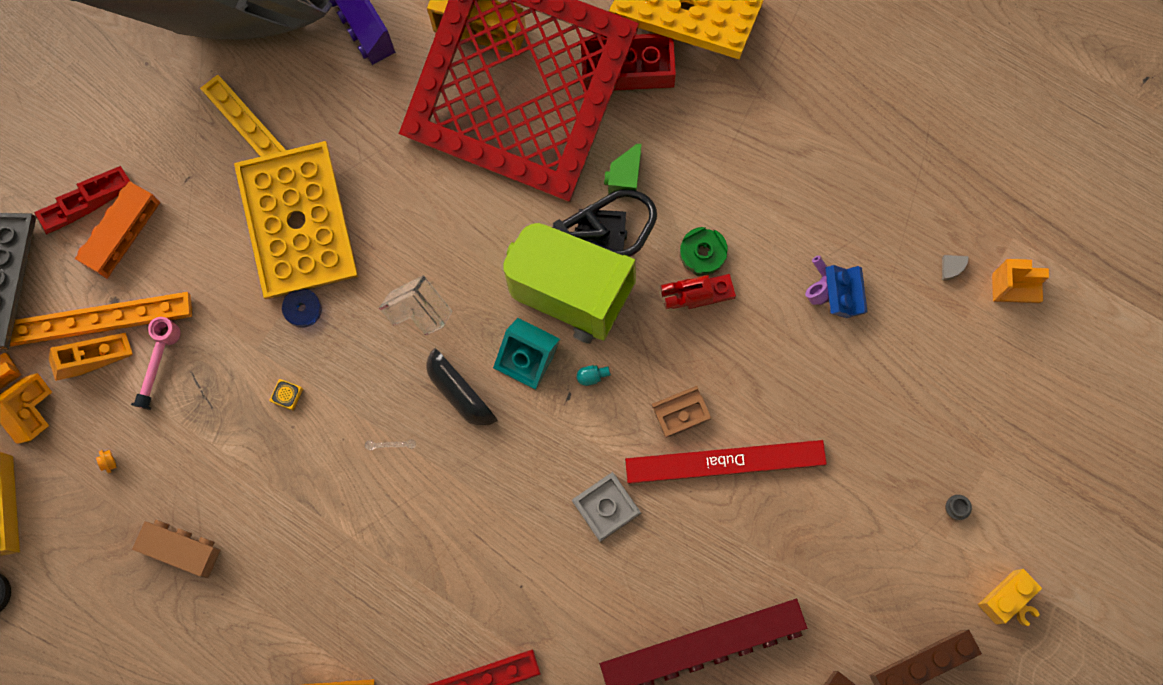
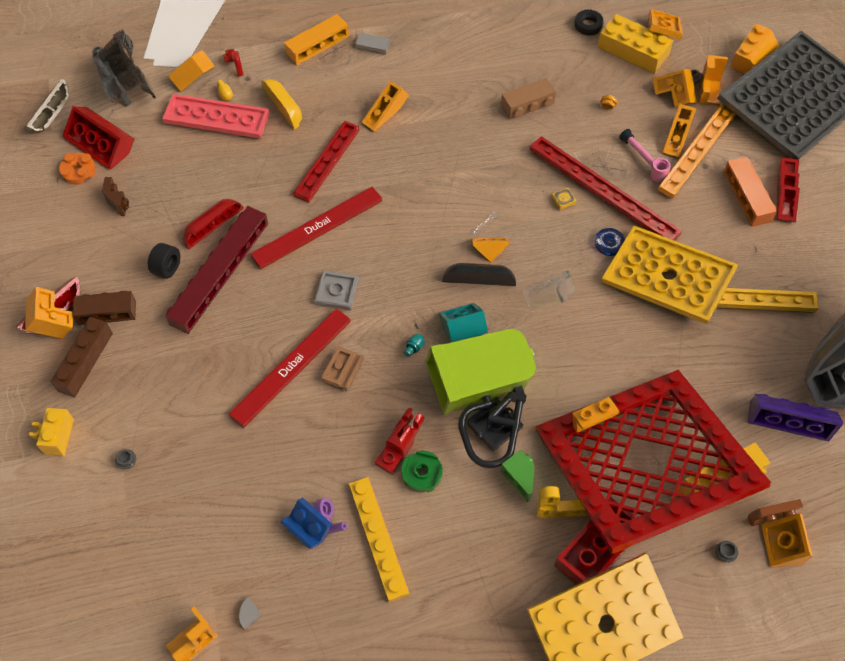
camera: 130 degrees right, 15 degrees down
(239, 369) = (604, 189): none -> red plate
(412, 410) = (490, 246): none -> light orange slope
(521, 144) = (594, 414): none -> light orange bracket
(555, 604) = (316, 227): none -> red tile
(631, 118) = (550, 506): none -> yellow beam
(792, 233) = (379, 540): none -> yellow plate

